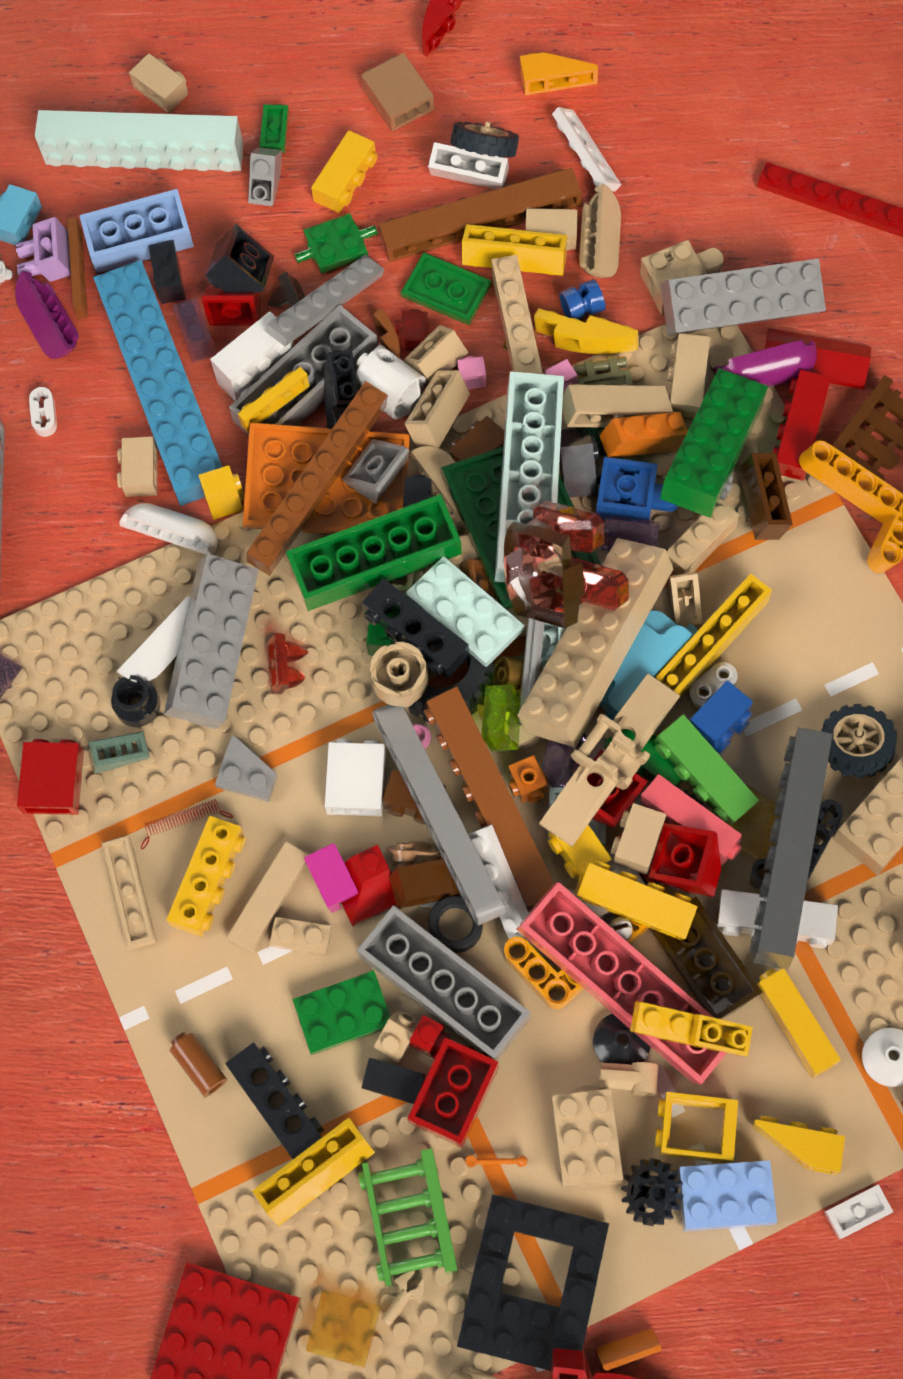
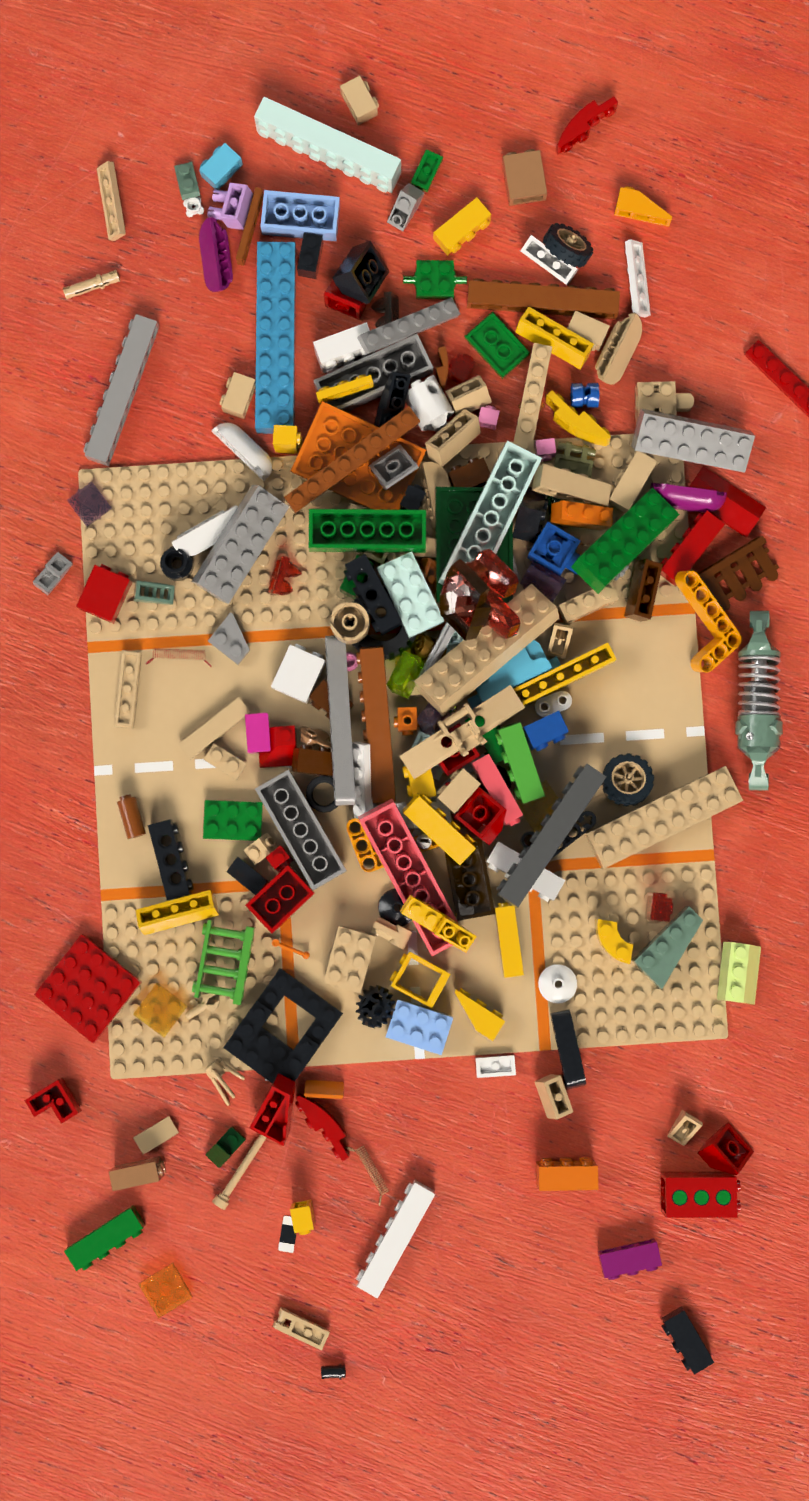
camera: 15 degrees right, 15 degrees up
(48, 411) = (184, 325): white beam -> none
(194, 330) = (312, 308): brick -> none
(205, 877) = (180, 699): yellow brick -> none

